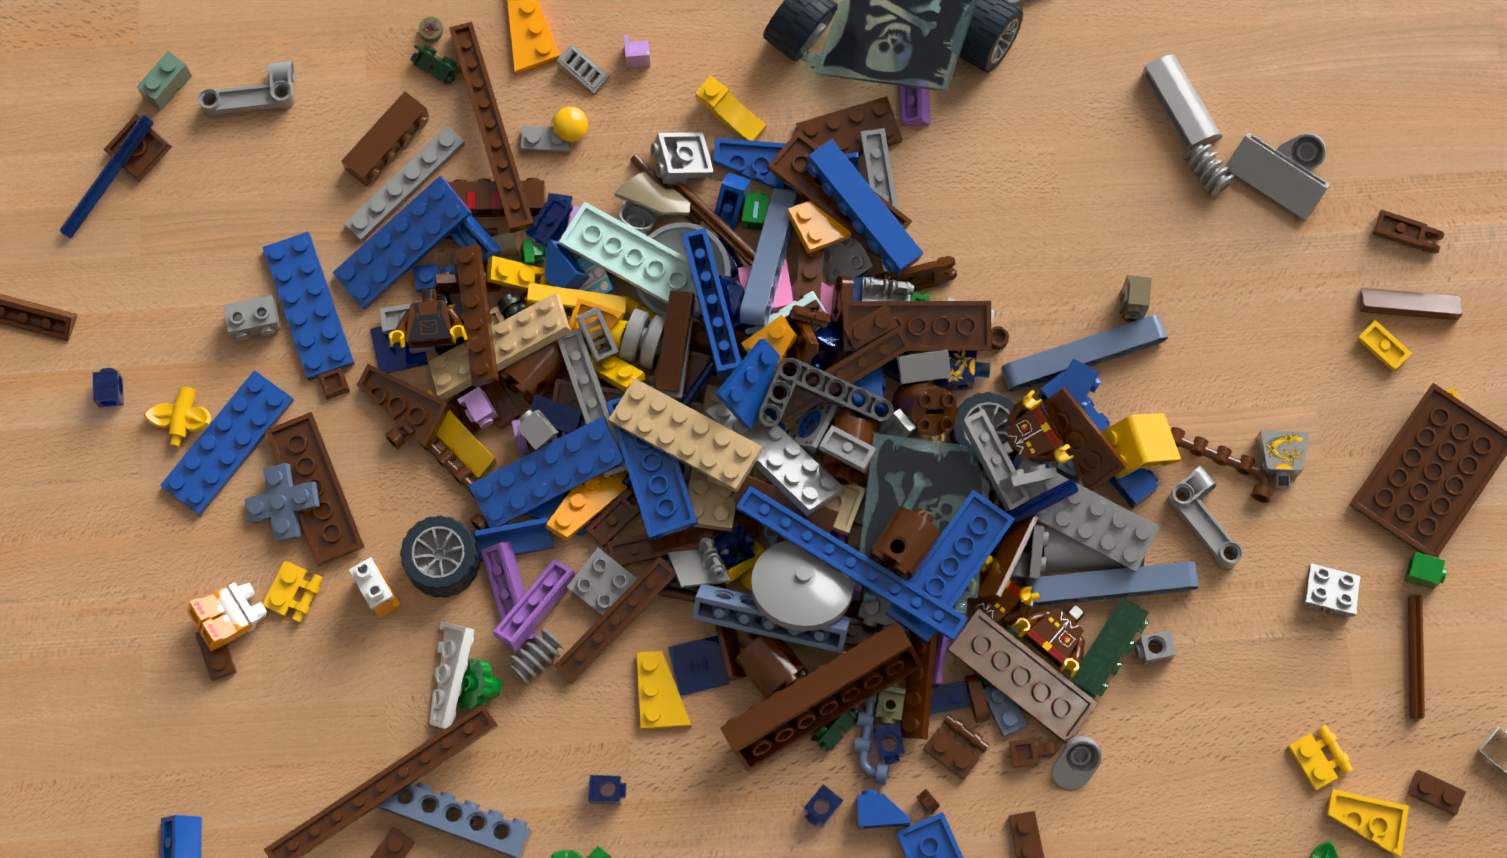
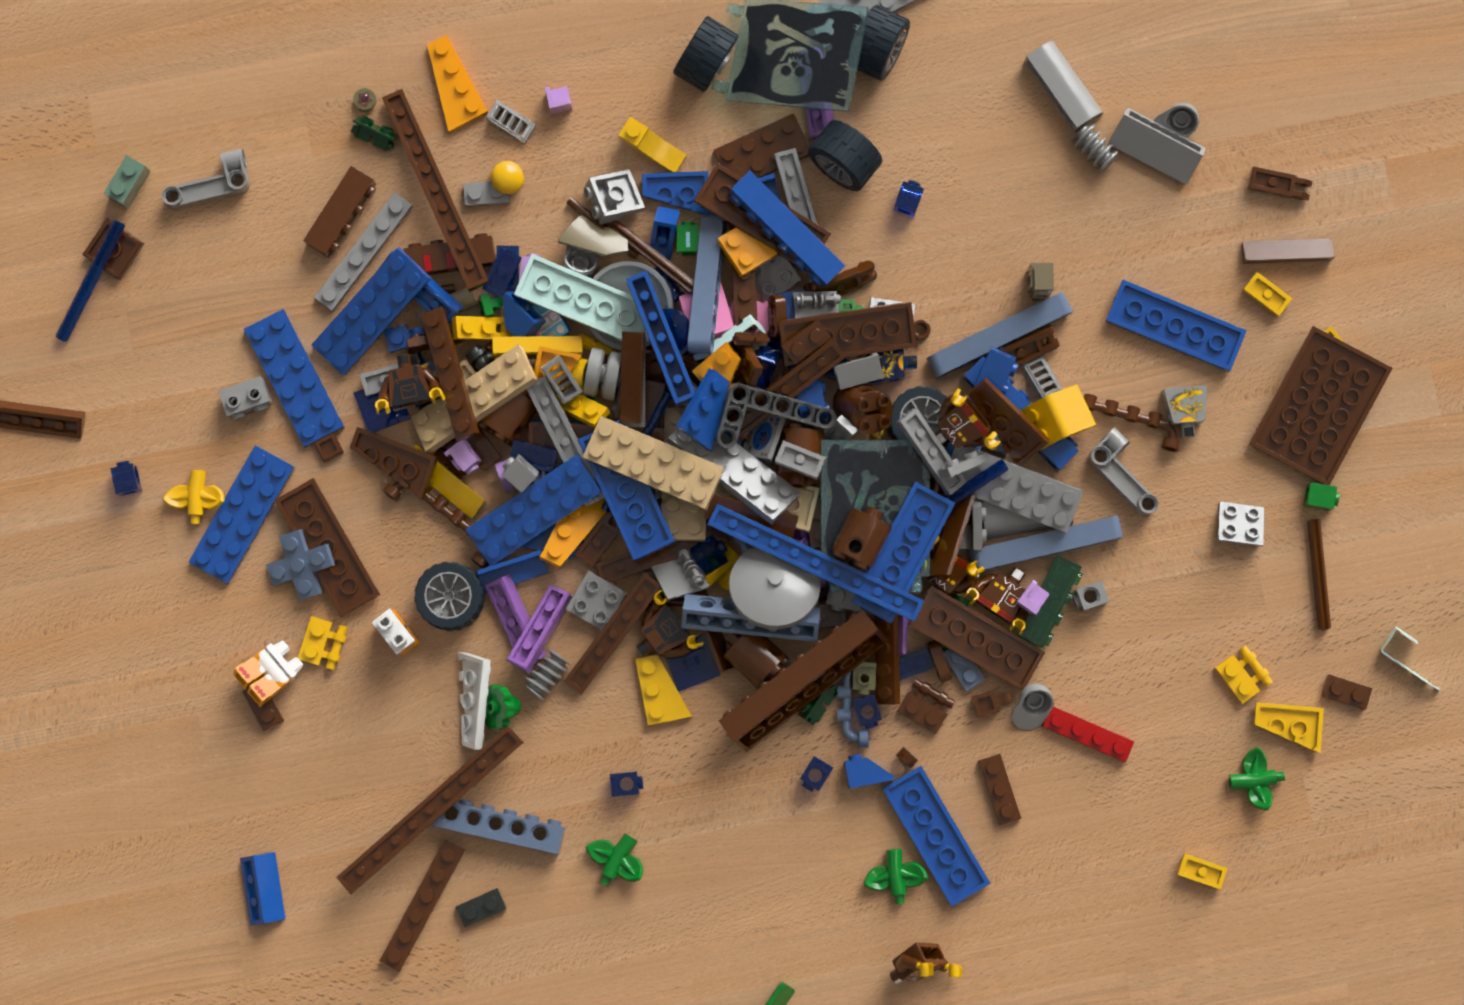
camera: 10 degrees left, 10 degrees up
(673, 625) = (664, 631): none -> torso
(937, 142) = (845, 155): none -> black wheel
(1001, 198) = (908, 198): none -> clear blue brick
(1089, 638) = (1032, 598): none -> lavender panel
(1117, 368) = (1030, 345): none -> reddish brown plate
(1137, 802) = (1088, 734): none -> red plate
(1138, 408) = (1035, 381): none -> light grey slope
(1280, 367) = (1176, 325): none -> blue plate

